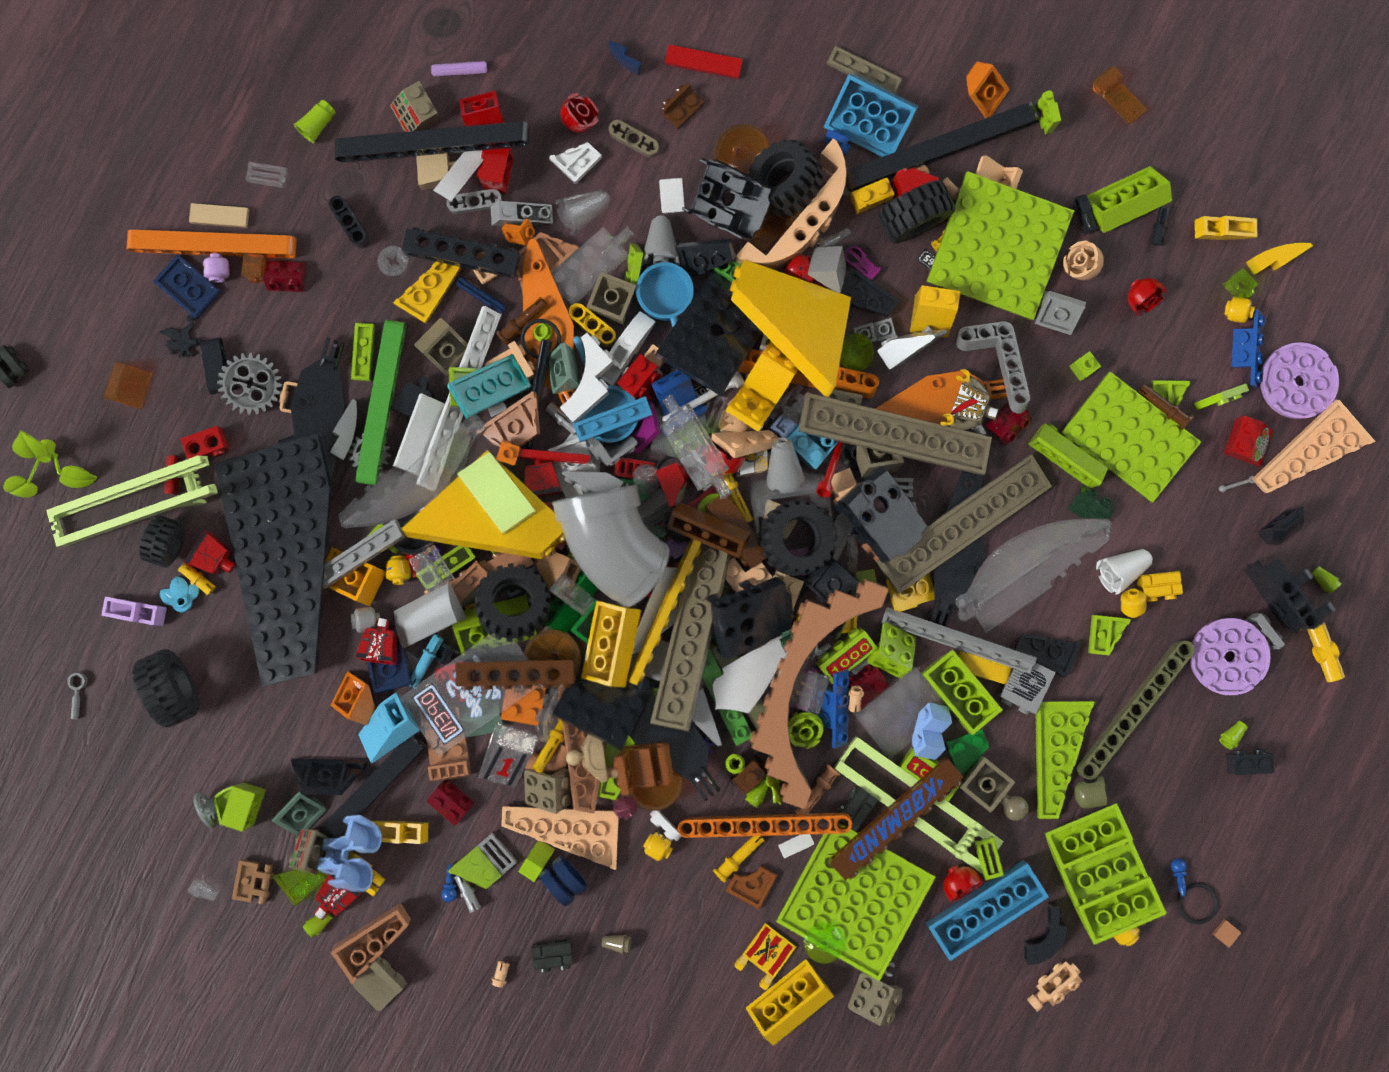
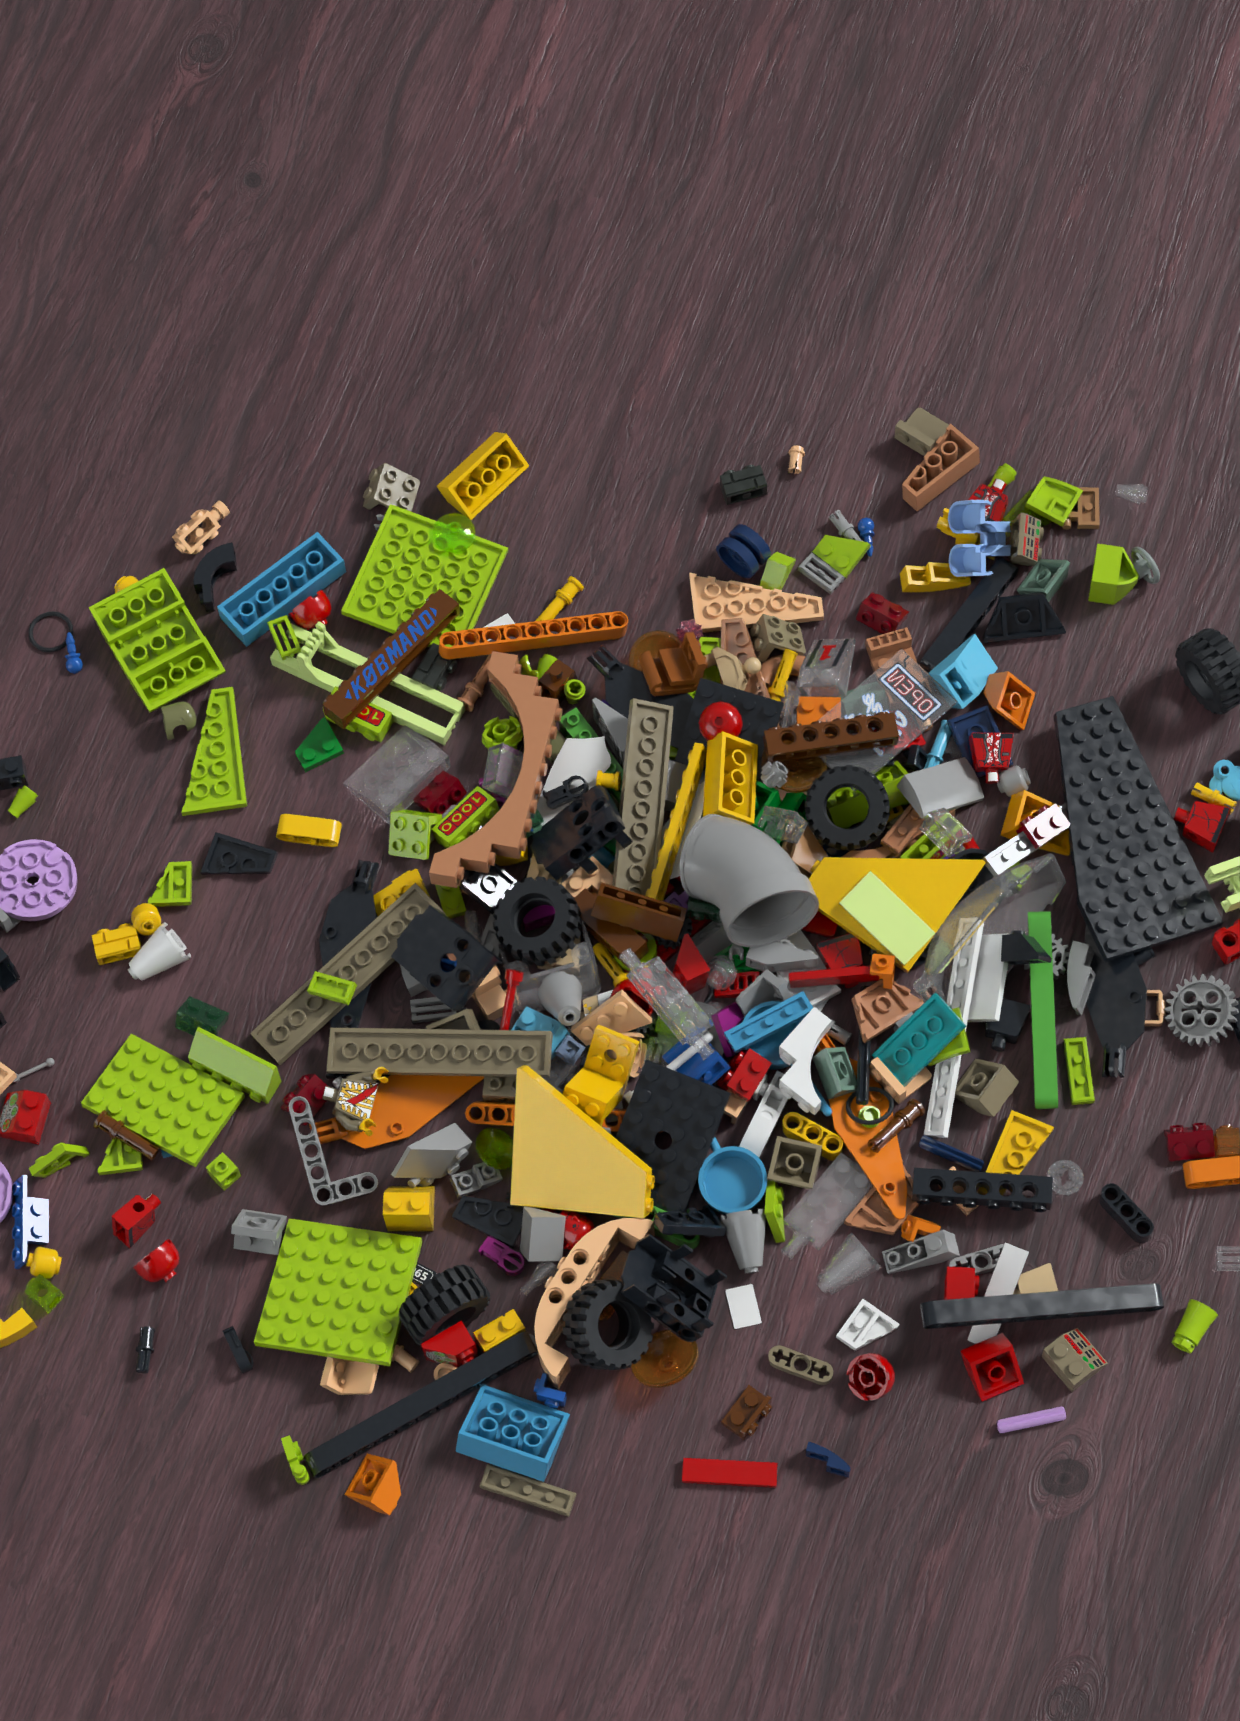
camera: 175 degrees right, 20 degrees down
(274, 891) = (1054, 499): none -> lime plate
(346, 564) = (1044, 826): none -> bracket
(385, 445) = (1022, 949): none -> black slope
(398, 570) = (987, 836): yellow head -> none
(571, 642) = (774, 774): none -> light grey gear
(610, 702) = (719, 718): none -> red cylinder
(617, 943) = (674, 505): dark tan cone -> none
(657, 846) = (647, 601): yellow head -> none
(671, 831) = (640, 623): white plate -> none
(717, 664) = (609, 780): none -> yellow bush
(752, 887) = (538, 579): dark orange tile -> none
(759, 660) = (563, 794): none -> black piece
(767, 952) = (513, 520): flag -> none
(835, 708) = (470, 760): blue bracket -> none
(856, 694) = (450, 775): light nougat pin -> none
(928, 731) = (365, 752): light blue brick -> none
(959, 640) = (341, 849): light grey tile -> none
(961, 692) = (334, 797): lime slope -> none
(980, 507) = (332, 988): none -> lime plate
(999, 784) = (291, 710): dark tan brick -> none
(1027, 566) = (274, 932): clear windscreen -> none
(1027, 689) = (259, 817): light grey panel -> none
(1083, 261) = (236, 1288): light nougat cylinder -> none
(1110, 87) = (208, 1502): clear orange door -> none
(1129, 198) = (188, 1376): lime slope -> none
(1144, 706) = (134, 821): olive beam -> none
(1166, 329) = (134, 1219): none -> red torso
(1225, 228) = (65, 1359): yellow slope -> none
(1226, 933) = (17, 606): nougat tile -> none

